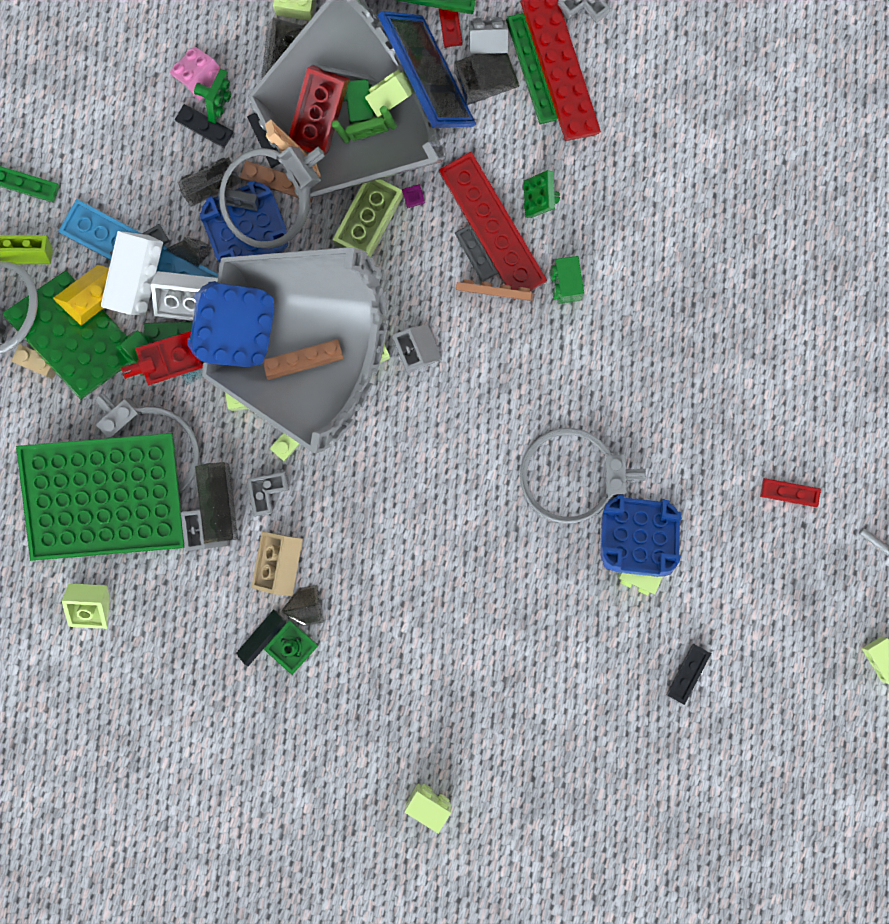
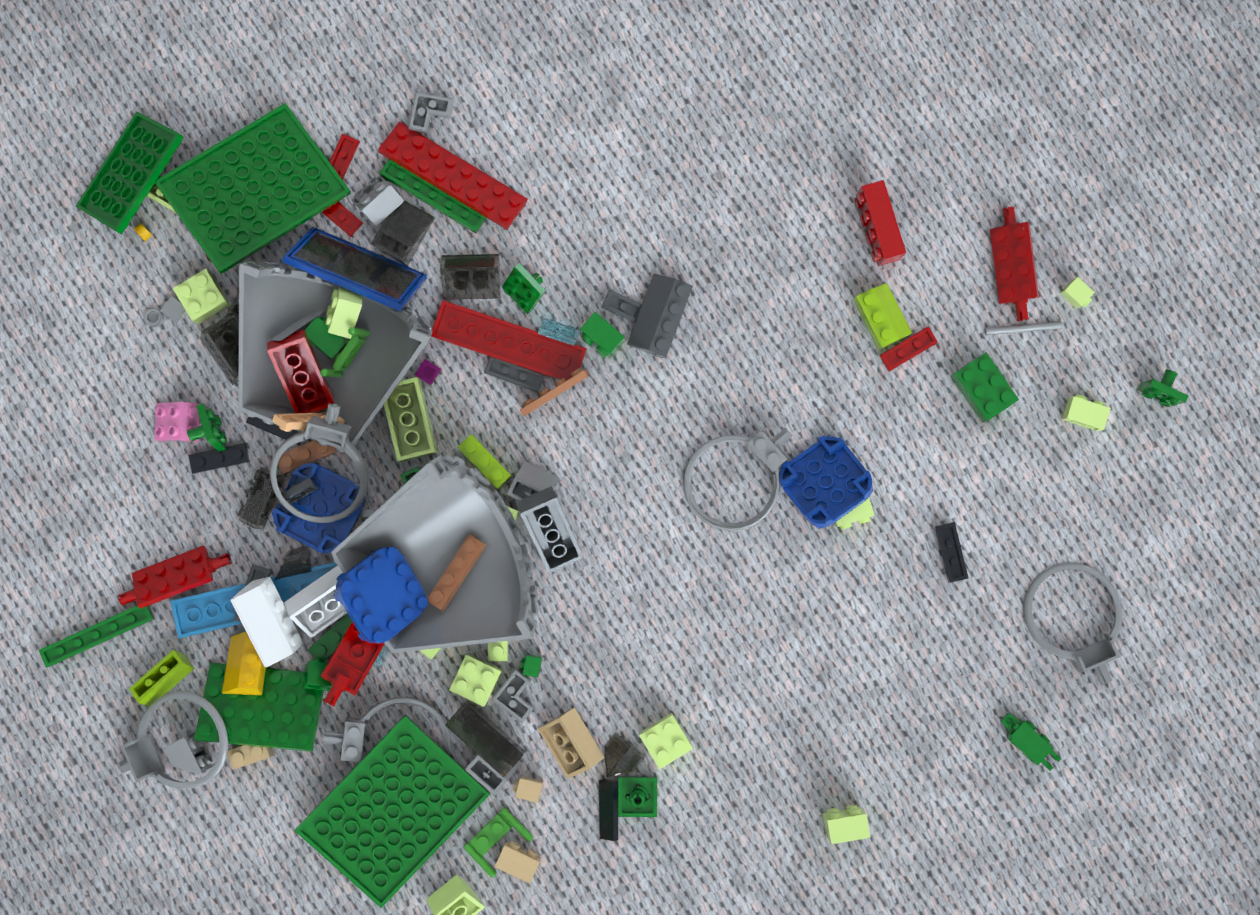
camera: 40 degrees left, 0 degrees up
(94, 183) = (173, 576): none -> red plate
(158, 579) = (491, 834): none -> bright green plate
(160, 616) = (518, 862): none -> tan brick
(215, 569) = (528, 788): none -> tan brick
(247, 454) = (476, 680): none -> yellowish green brick
(298, 480) = (531, 665): none -> green plate
(348, 624) = (665, 740): none -> yellowish green brick
(397, 298) = (485, 461): none -> lime brick
(400, 389) = (549, 529): none -> brick
(507, 152) = (470, 276): none -> clear smoke slope
(537, 250) = (559, 331): none -> clear light blue plate
(601, 272) = (621, 306): none -> dark grey plate
(621, 868) = (1028, 741): none -> green hinge
(624, 303) = (659, 315): none -> dark grey slope
(726, 847) = (1089, 657): none -> light grey brick
(792, 450) = (882, 316): none -> lime slope
(823, 572) = (984, 387): none -> green brick
(853, 378) = (880, 223): none -> red brick

